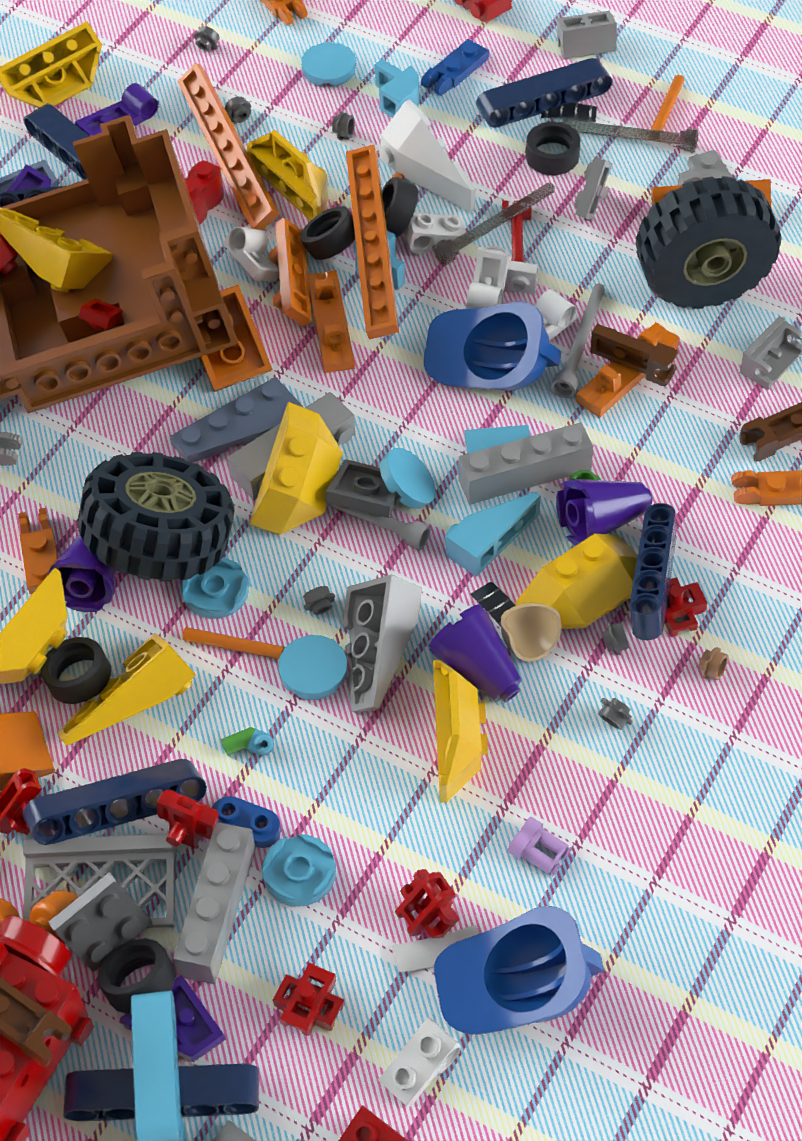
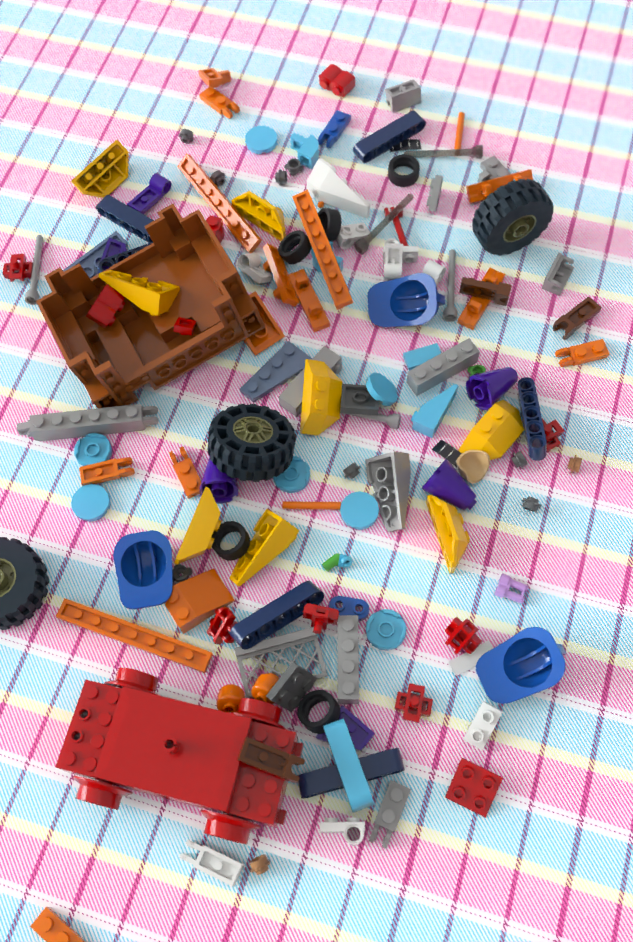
camera: 10 degrees left, 10 degrees up
(369, 113) = (293, 166): none -> dark grey plate

